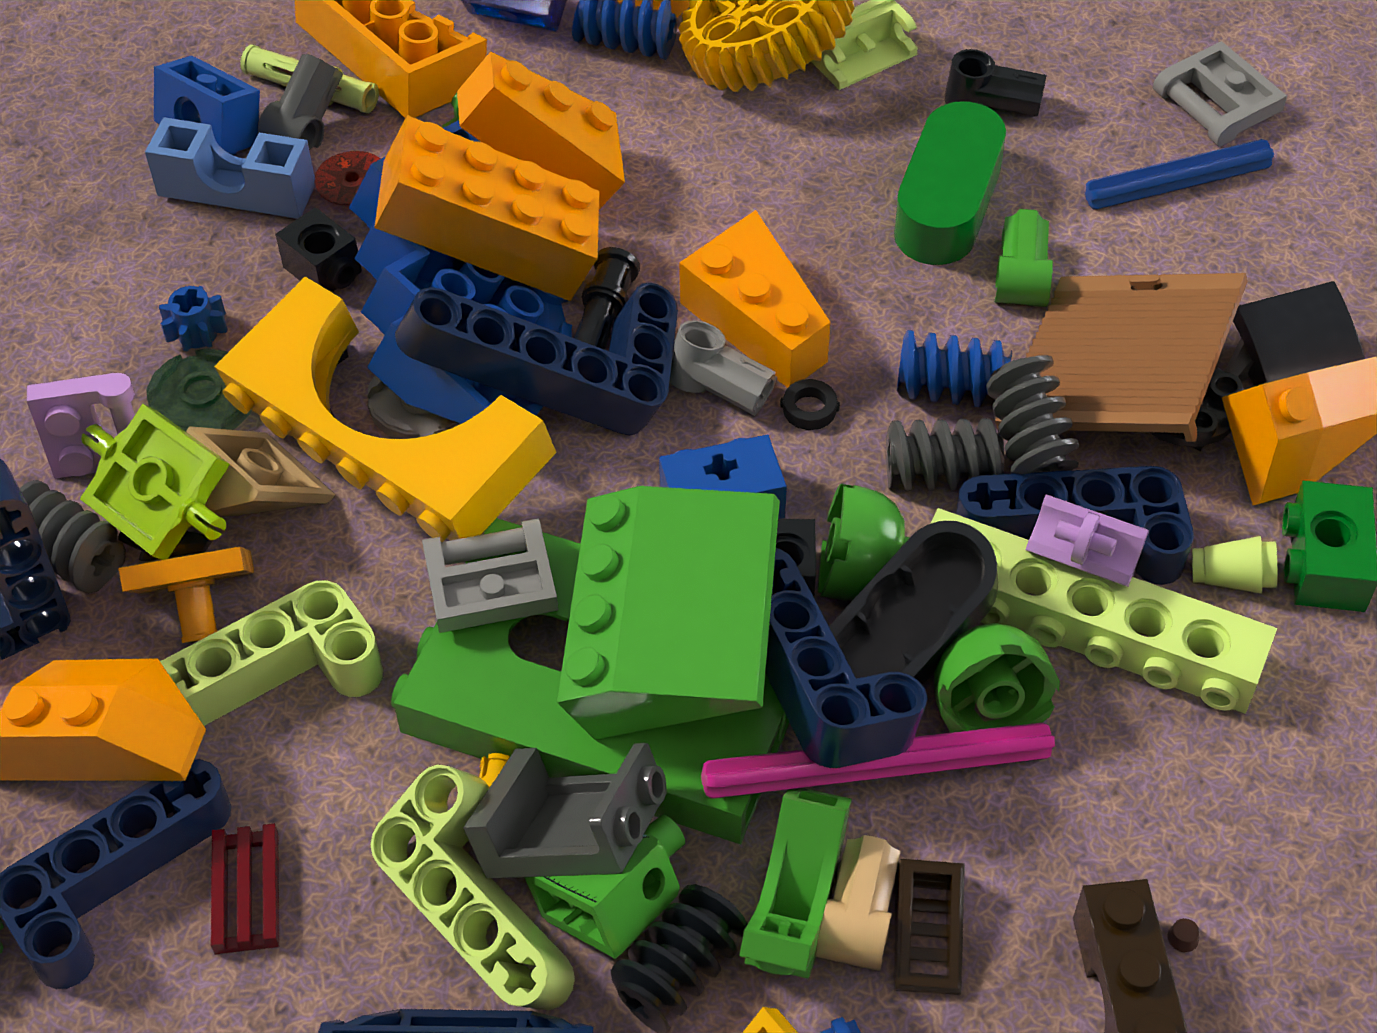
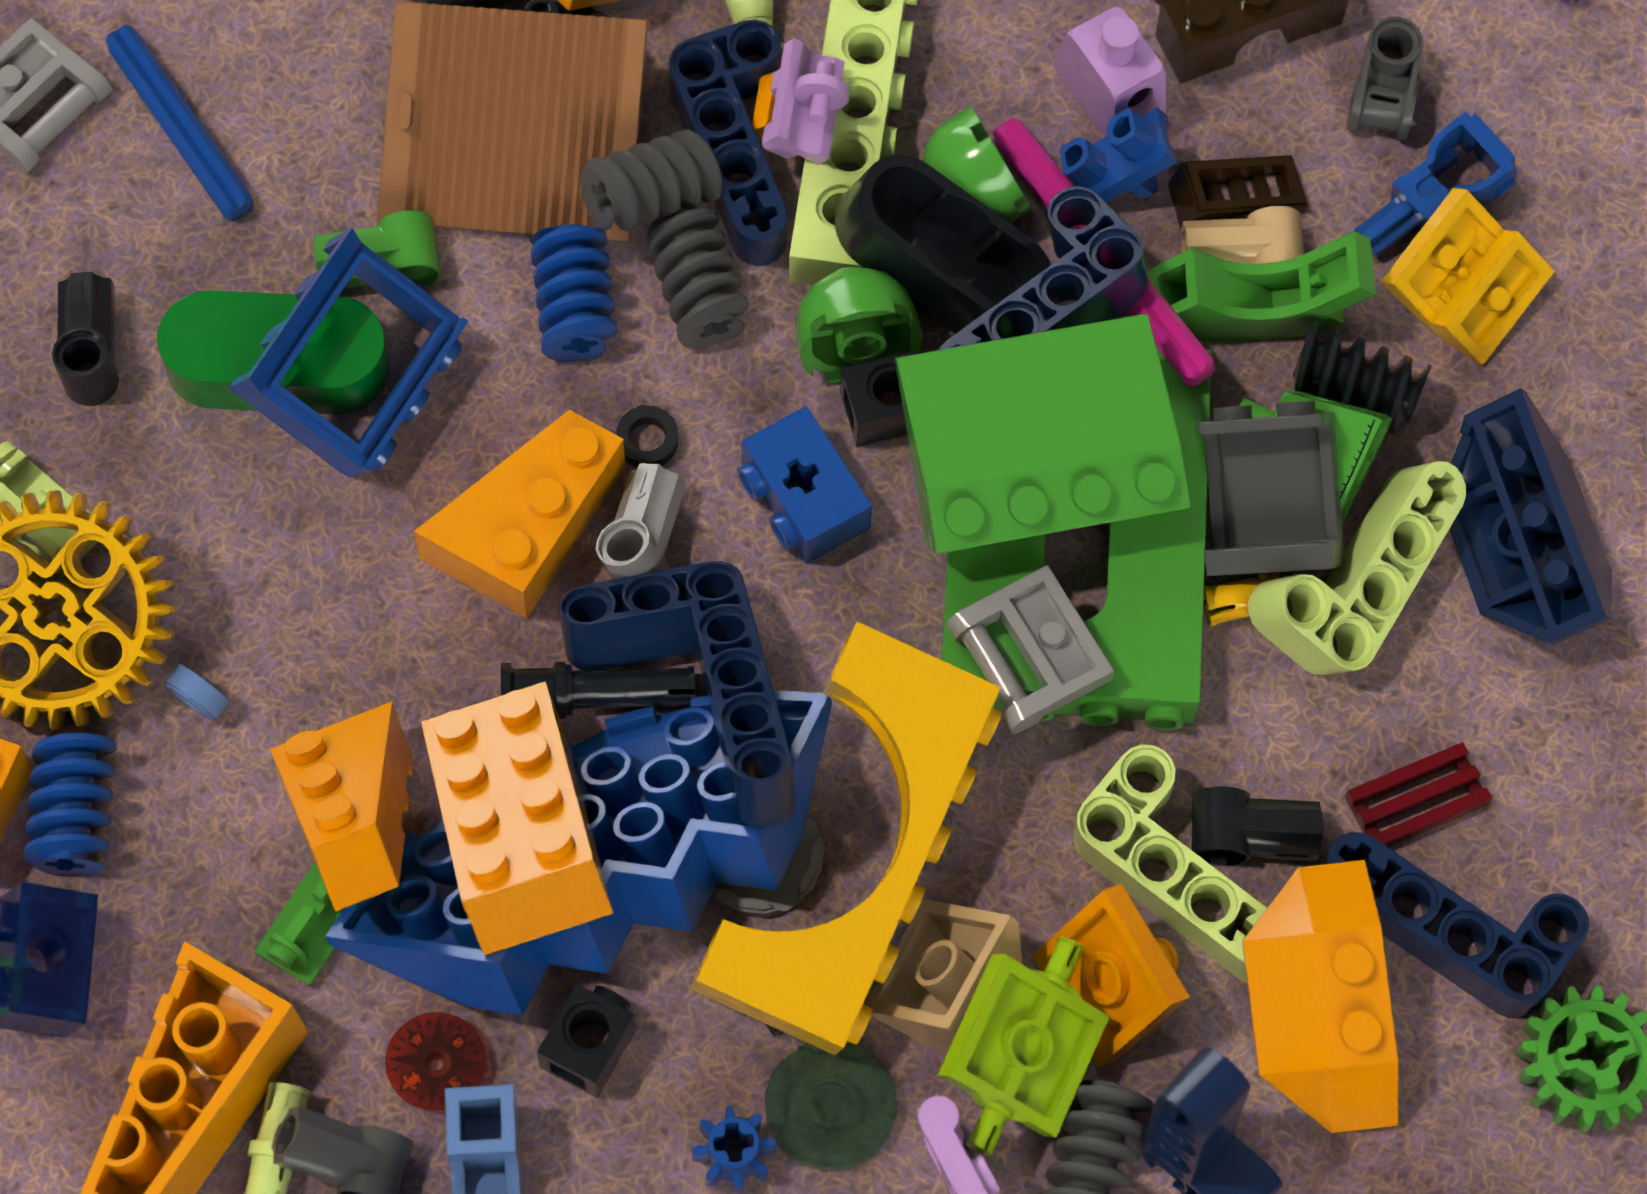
camera: 110 degrees left, 15 degrees up
(279, 722) = (1240, 827): none -> black piece
(685, 99) = (196, 692): none -> medium blue tile
(892, 252) = (287, 339): none -> blue window
(978, 807) = (1124, 159): none -> blue hips
(1083, 827) = (1109, 65): none -> lavender torso

